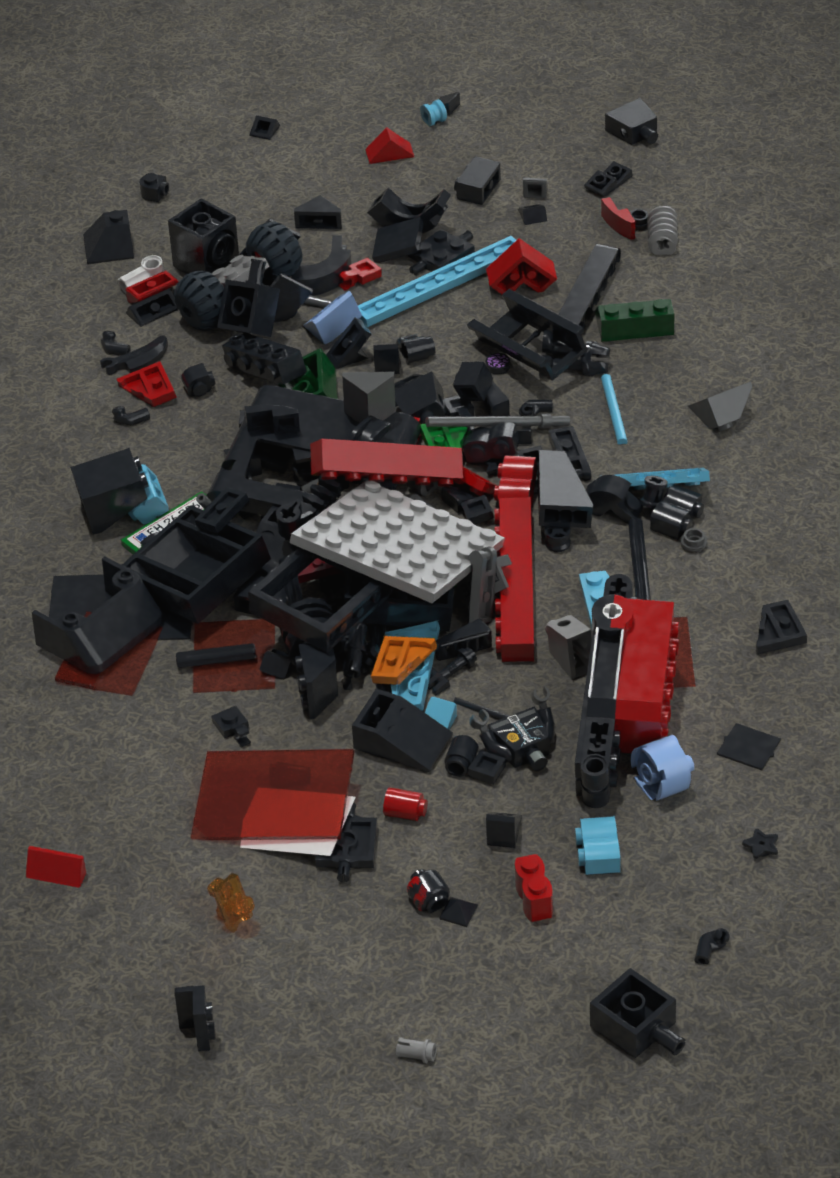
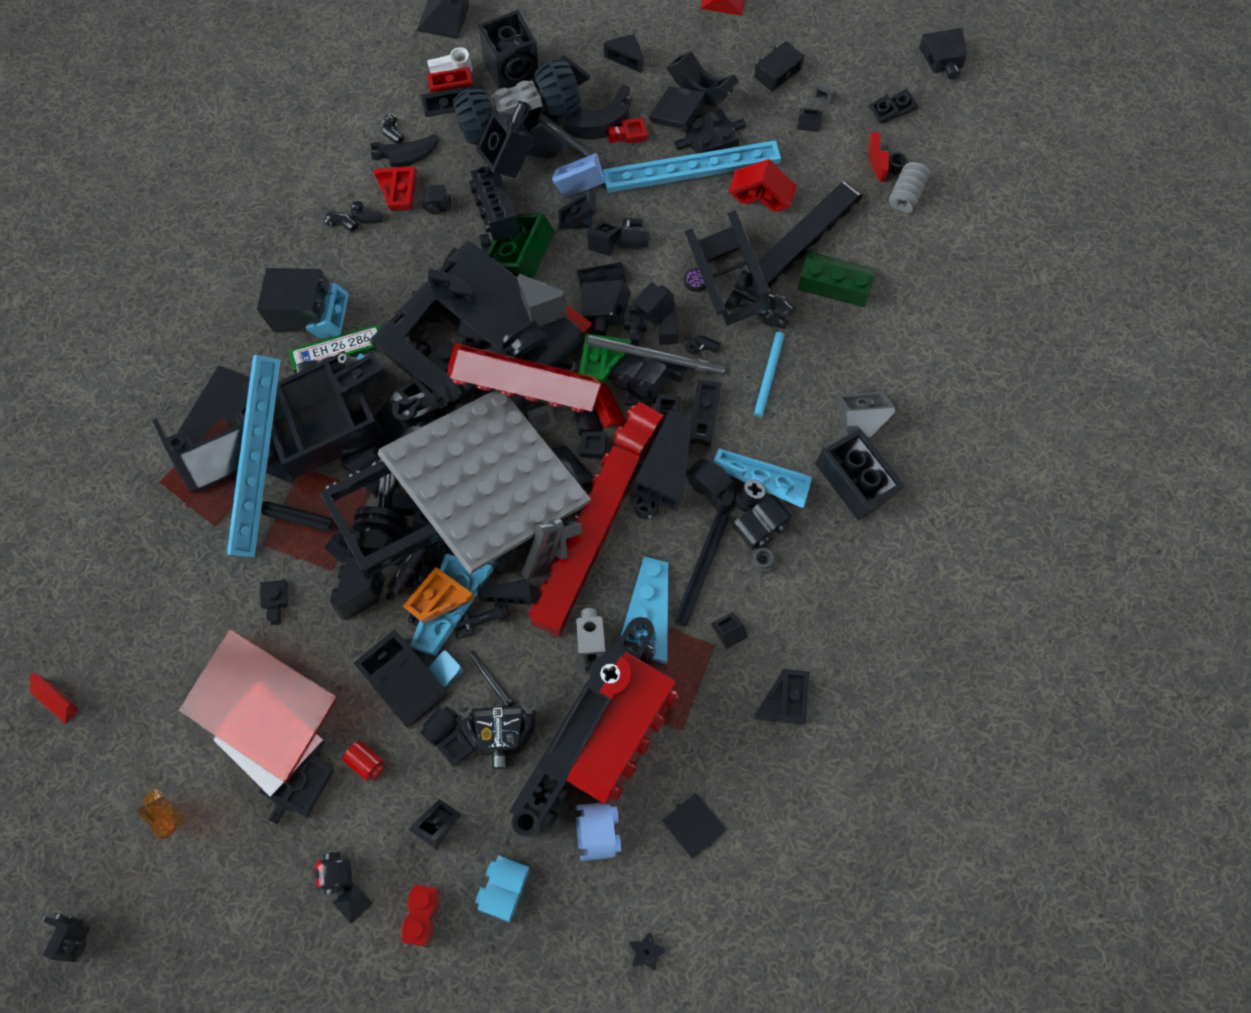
camera: 20 degrees right, 25 degrees up
(109, 426) = (340, 217): none -> black arm
(152, 610) = (253, 456): none -> medium azure plate
(695, 600) = (730, 630): none -> black slope
(745, 446) = (859, 474): none -> black slope

